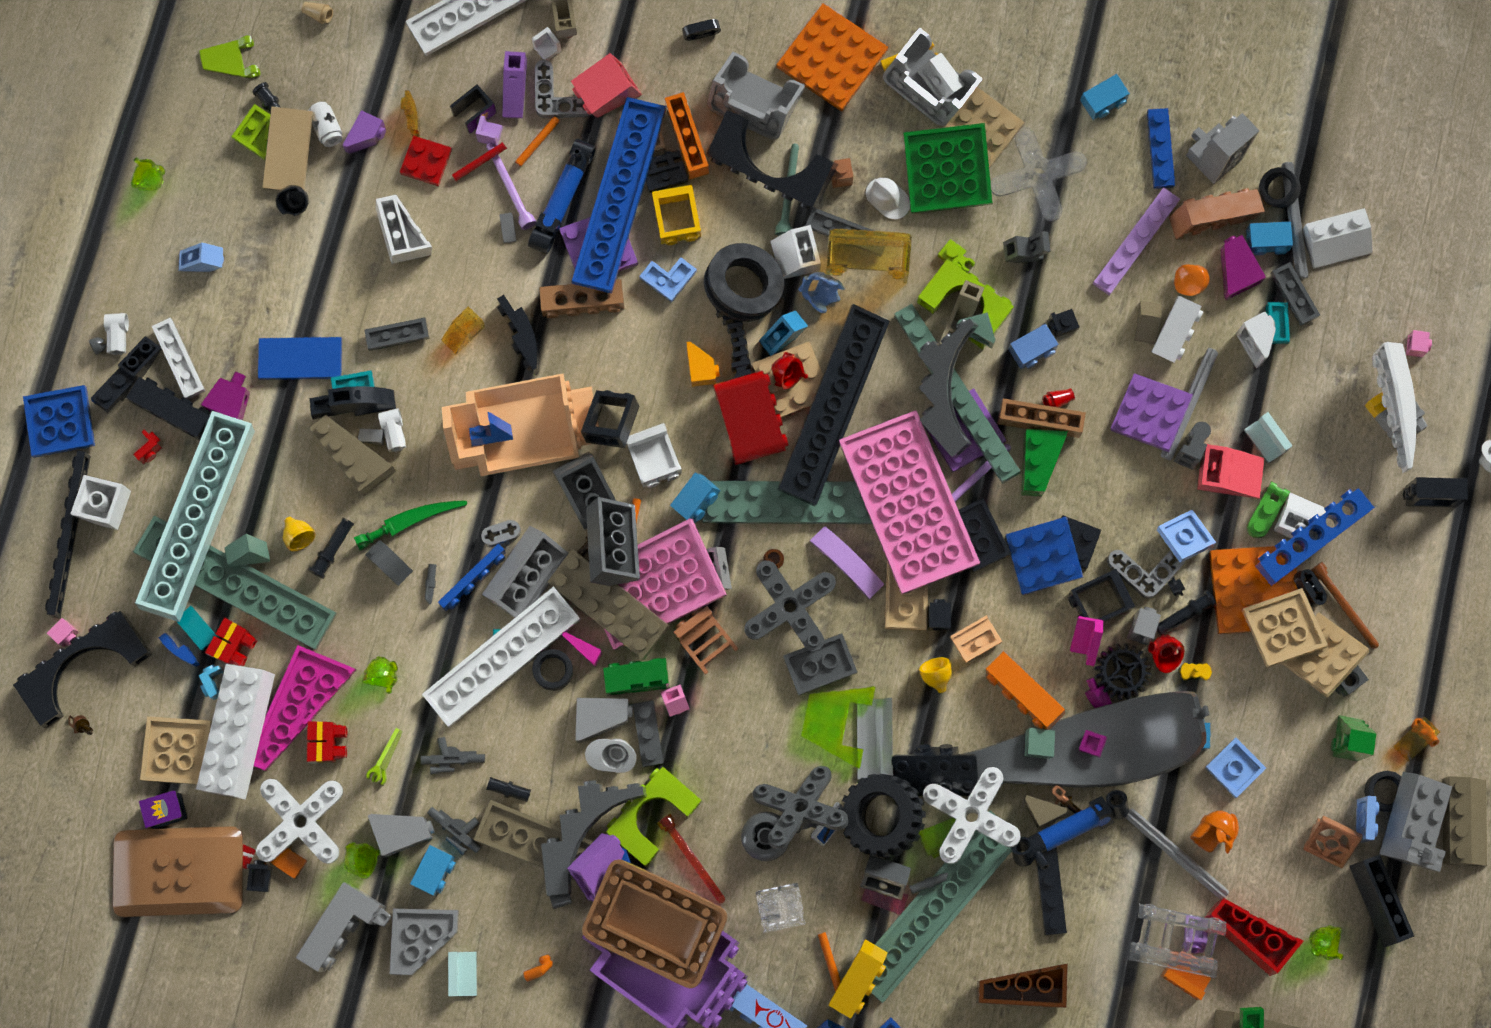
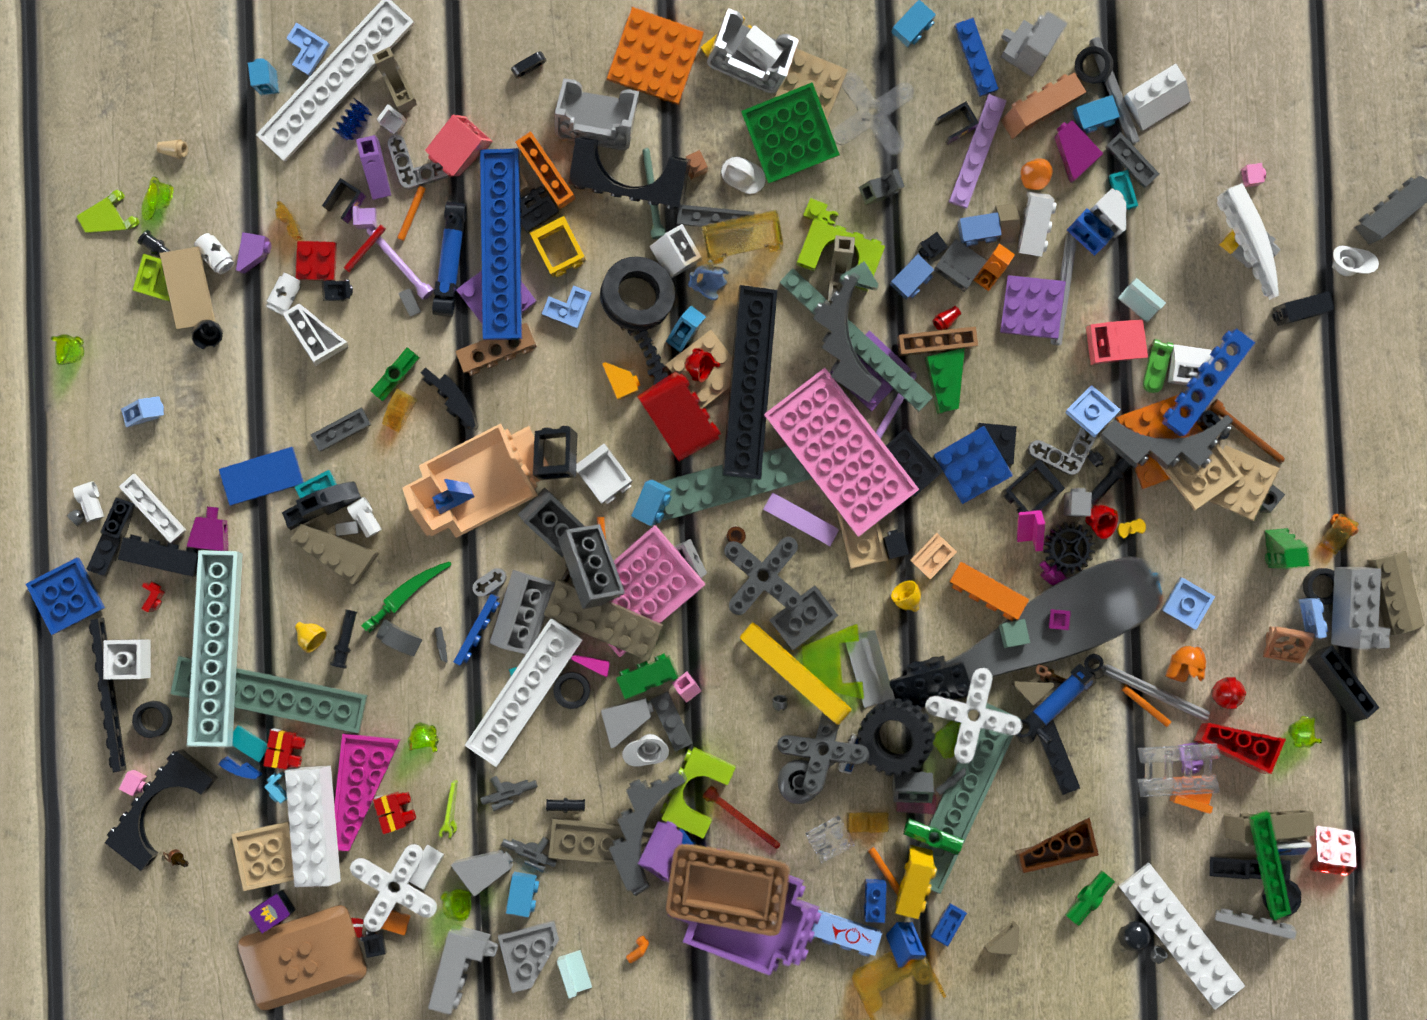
camera: 15 degrees left, 10 degrees up
(94, 561) = (137, 719): none -> black tyre
(246, 551) = (270, 665): sand green slope -> none
(286, 54) = (157, 197): none -> clear neon green piece
(340, 812) = (426, 867): none -> white slope
(375, 188) = (287, 284): none -> white piece
(437, 195) = (337, 290): none -> black bracket
(482, 286) = (386, 384): none -> green piece
(506, 34) = (352, 120): none -> clear blue piece
(696, 627) = (681, 623): nougat plate -> none
(769, 746) = (780, 702): none -> dark grey hinge
(794, 718) = (795, 673): none -> yellow beam
(810, 989) = (875, 900): none -> blue brick
(826, 903) = (867, 822): none -> clear yellow slope
(904, 945) = (944, 841): none -> green piece
(1086, 349) = (960, 265): none -> dark grey bracket
(1117, 318) = (979, 228): none -> medium blue brick
(1121, 194) = (965, 108): none -> black piece
(1121, 360) = (994, 267): none -> orange slope
(1162, 865) = (1147, 706): none -> orange bar
(1192, 452) = (1080, 331): dark grey legs -> none
(1232, 352) = (1090, 231): none -> blue brick
(1253, 597) = (1166, 452): none -> dark grey arch
(1255, 876) = (1228, 693): none -> red helmet

